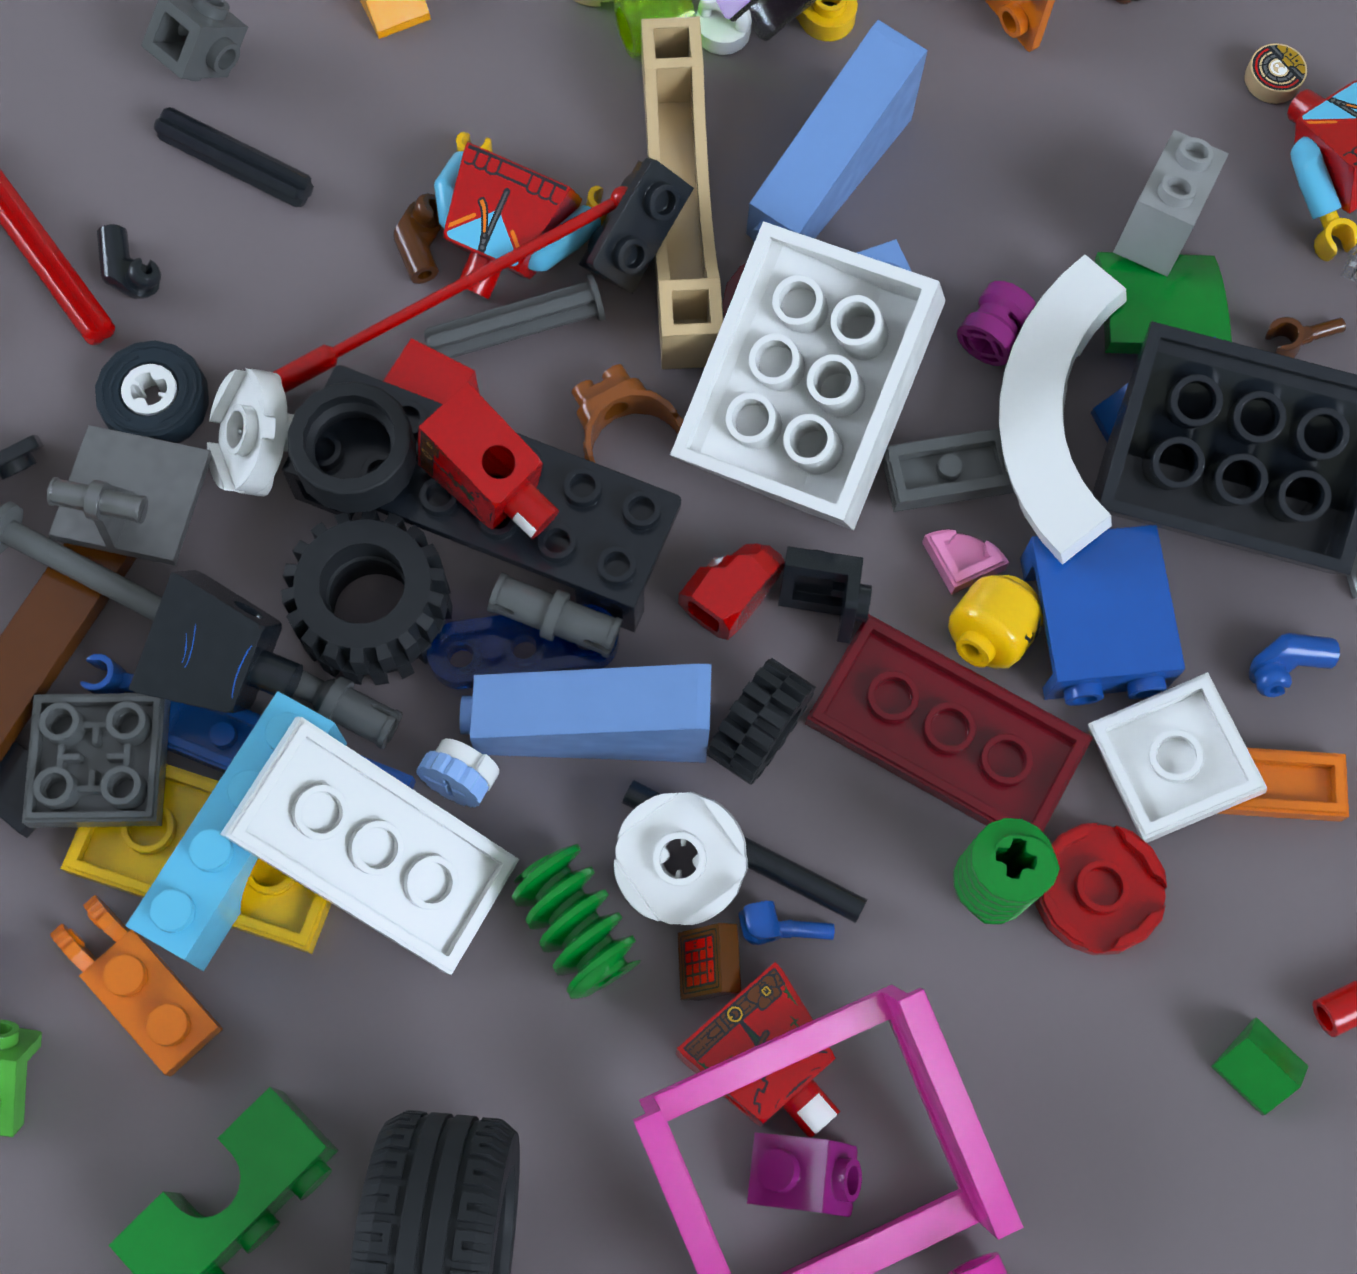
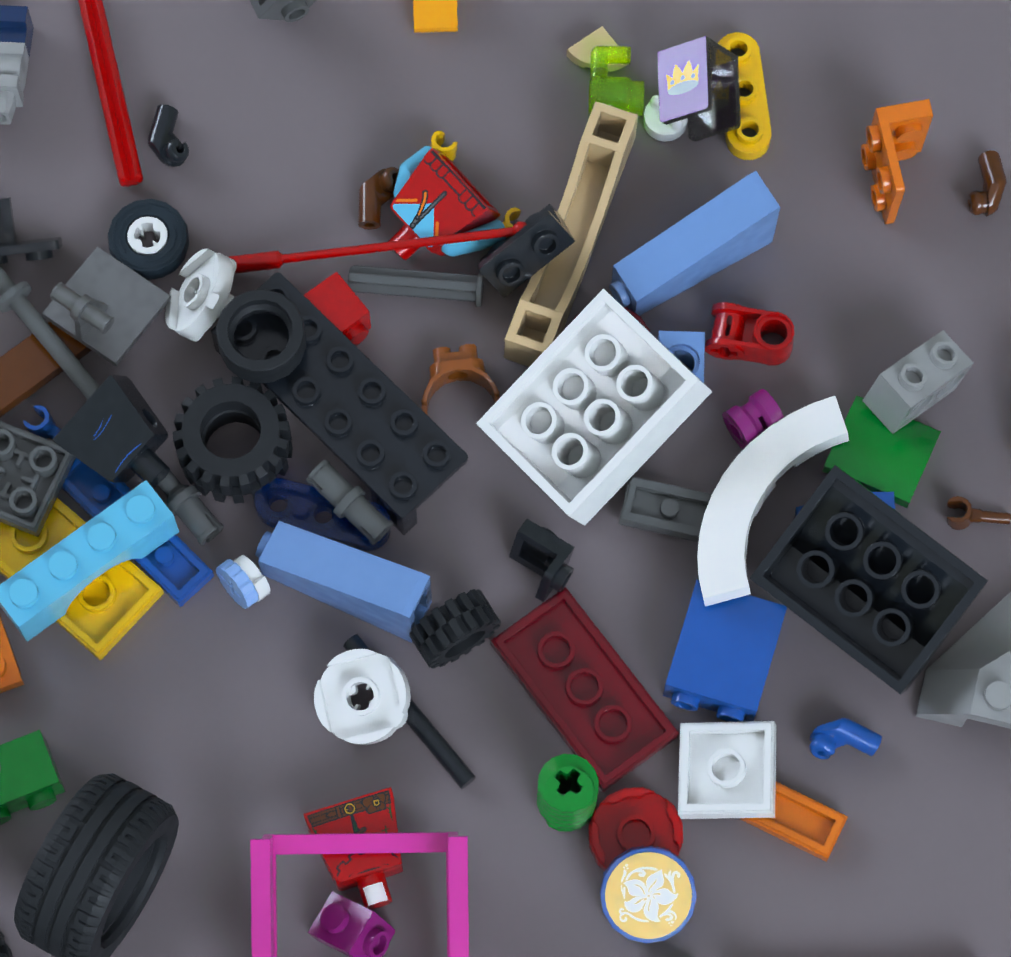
camera: 25 degrees right, 0 degrees up
(233, 157) = (273, 86): black axle -> none
(370, 845) = (165, 605): white tile -> none
(468, 445) = (335, 367): red torso -> none
(573, 922) = (273, 709): green piece -> none
(709, 962) = (351, 771): tile -> none
(731, 588) = (480, 532): red rock -> none
(761, 925) = (398, 763): blue hand -> none
(939, 225) = (746, 334): none -> red piece
(963, 558) = (652, 576): bright pink tile -> none
(996, 619) = (648, 627): yellow head -> none
(1158, 958) = (648, 894): none -> tile

